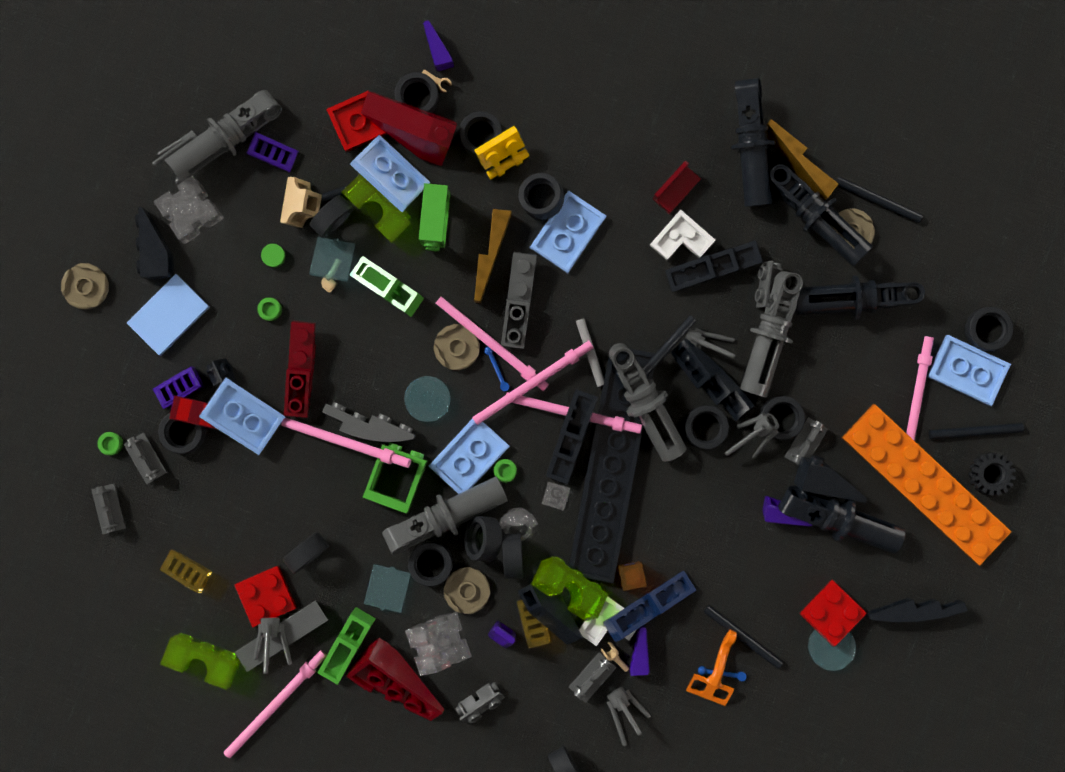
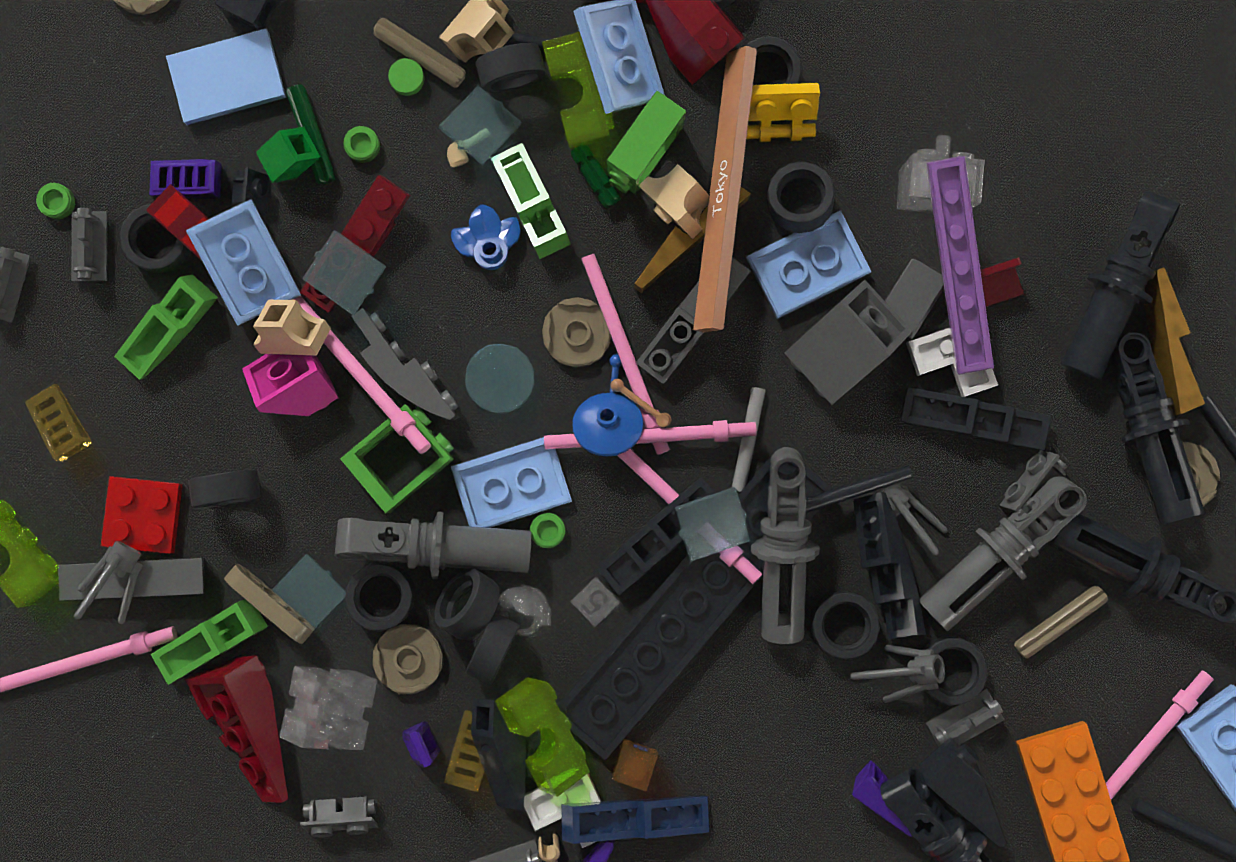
camera: 30 degrees right, 0 degrees up
(216, 479) = (165, 325): none -> bright green slope
(231, 339) = (288, 154): none -> green brick
(236, 320) = (305, 118): none -> dark green axle
(272, 237) = (419, 52): none -> dark tan axle
(290, 440) = (289, 329): none -> tan brick
(303, 389) = (344, 272): none -> clear light blue piece
(307, 469) = (289, 384): none -> dark pink slope
(369, 604) = (269, 603): none -> dark tan beam
(371, 319) = (486, 232): none -> blue plate
(415, 250) = (595, 175): none -> dark green axle
(471, 237) = (677, 199): none -> tan brick
(495, 217) = (725, 190): none -> nougat tile
(508, 397) = (611, 436): none -> blue dish
(535, 369) = (662, 419): none -> medium nougat hinge
(597, 412) = (712, 524): none -> clear light blue piece
(615, 143) = (914, 182): none -> clear brick
(616, 264) = (848, 342): none -> dark grey slope
(638, 218) = (915, 294): none -> dark grey slope
(654, 184) = (960, 264): none -> medium lavender tile
(828, 354) = (1061, 621): none -> dark tan axle

